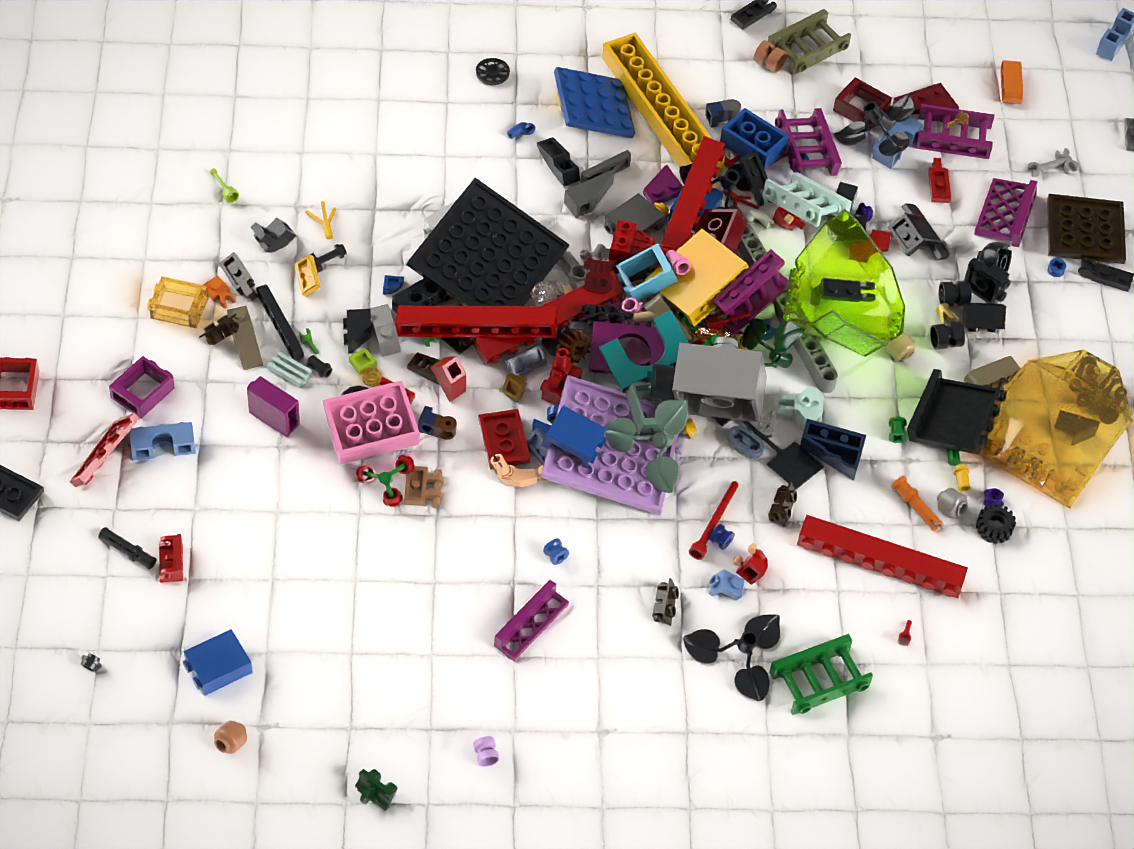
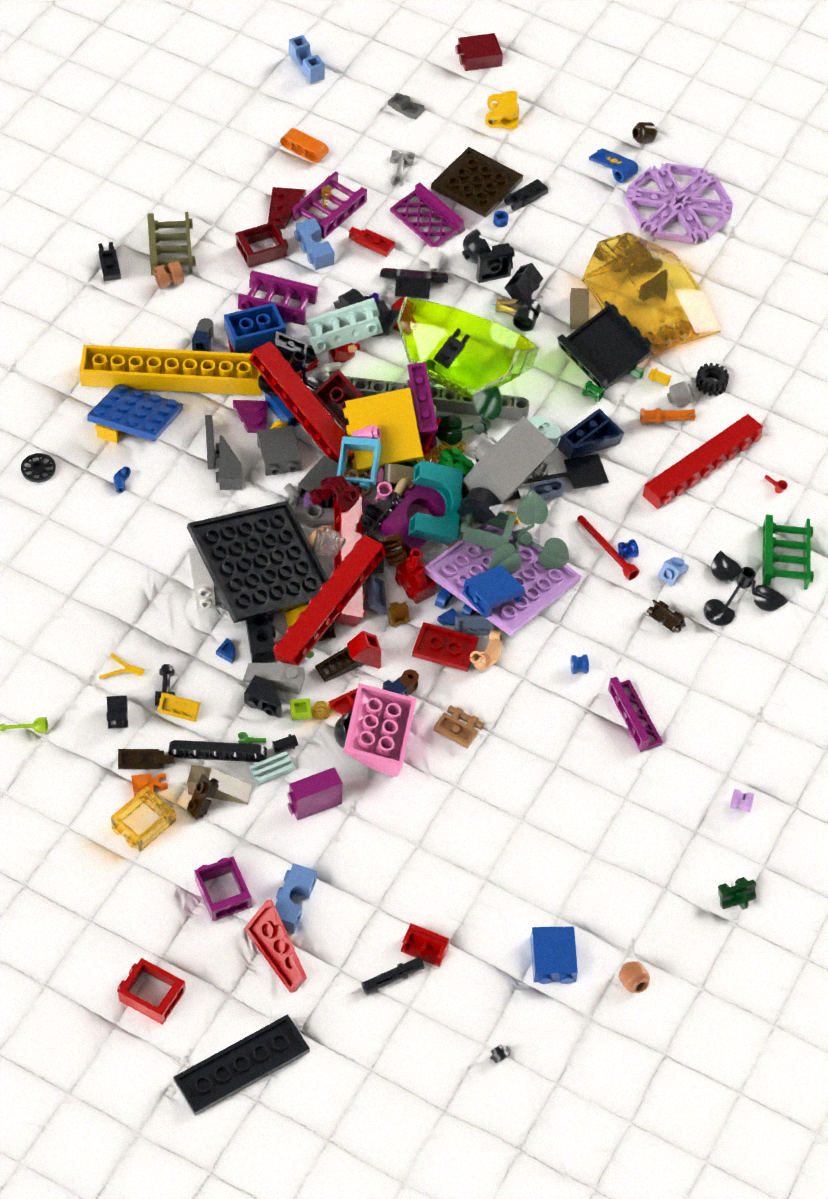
camera: 60 degrees left, 0 degrees up
(391, 496) = (457, 751): red plant -> none
(559, 161) = (176, 469): black slope -> none
(630, 241) = (316, 459): red brick -> none
(754, 565) = (667, 543): red piece -> none
(786, 497) = (614, 491): dark brown hinge -> none
(898, 142) = (290, 224): black plant -> none
(955, 293) = (490, 289): black wheel -> none
(995, 494) = (688, 368): dark purple plate -> none

